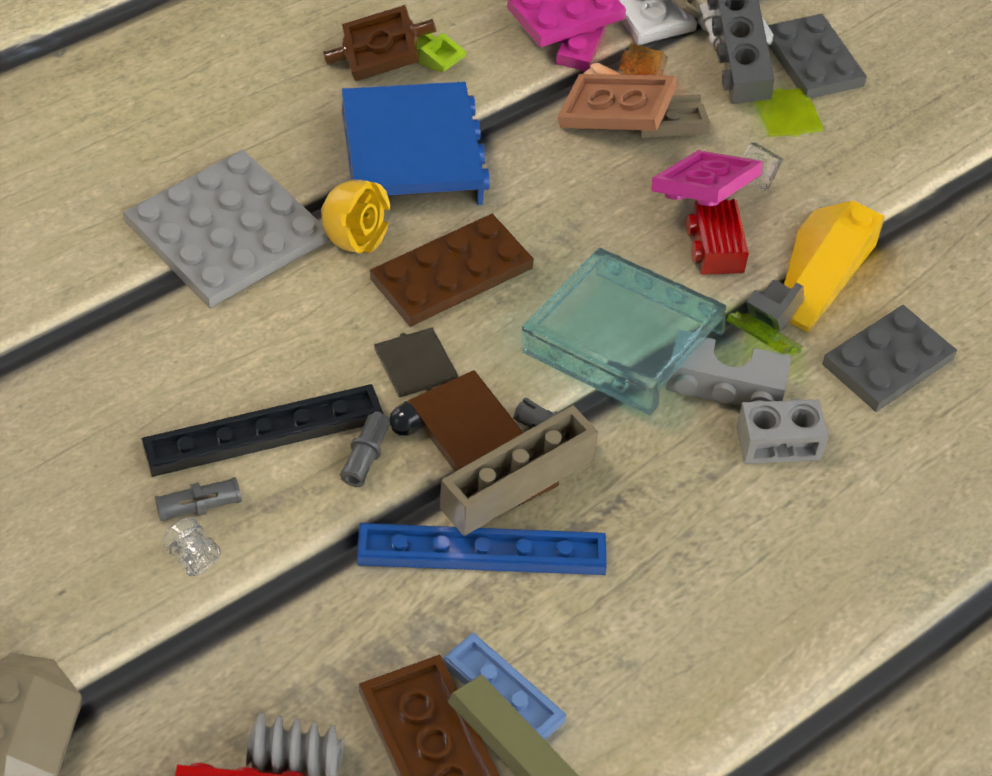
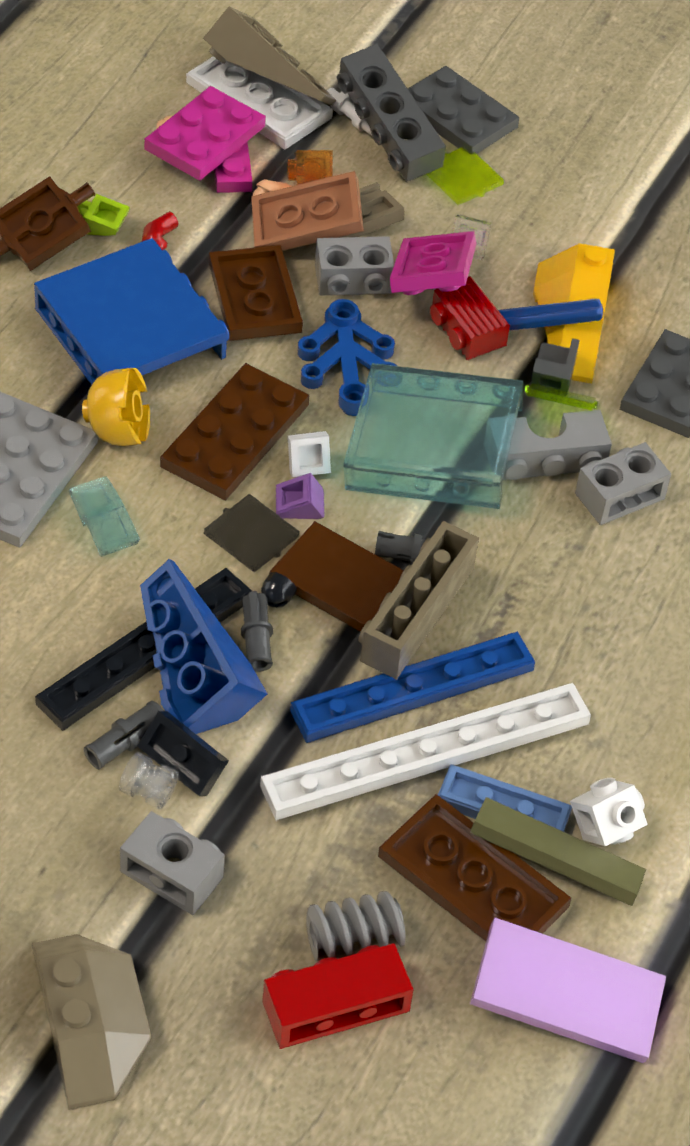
camera: 25 degrees left, 0 degrees up
(171, 648) = (182, 882): none -> light grey brick
(235, 533) = (179, 747): none -> black plate
(292, 304) = (104, 515): none -> clear light blue slope
(297, 461) = (200, 665): none -> blue wedge
(457, 611) = (423, 751): none -> white plate
(476, 347) = (300, 498): none -> medium lavender slope
(483, 78) = (160, 227): none -> red arm
(501, 309) = (309, 454): none -> white tile
(536, 156) = (255, 292): none -> reddish brown plate
(594, 733) = (609, 812): none -> white brick
(601, 204) = (344, 320): none -> blue plant
(635, 157) = (354, 265): none -> light grey brick
(794, 256) = (553, 314): none -> blue axle

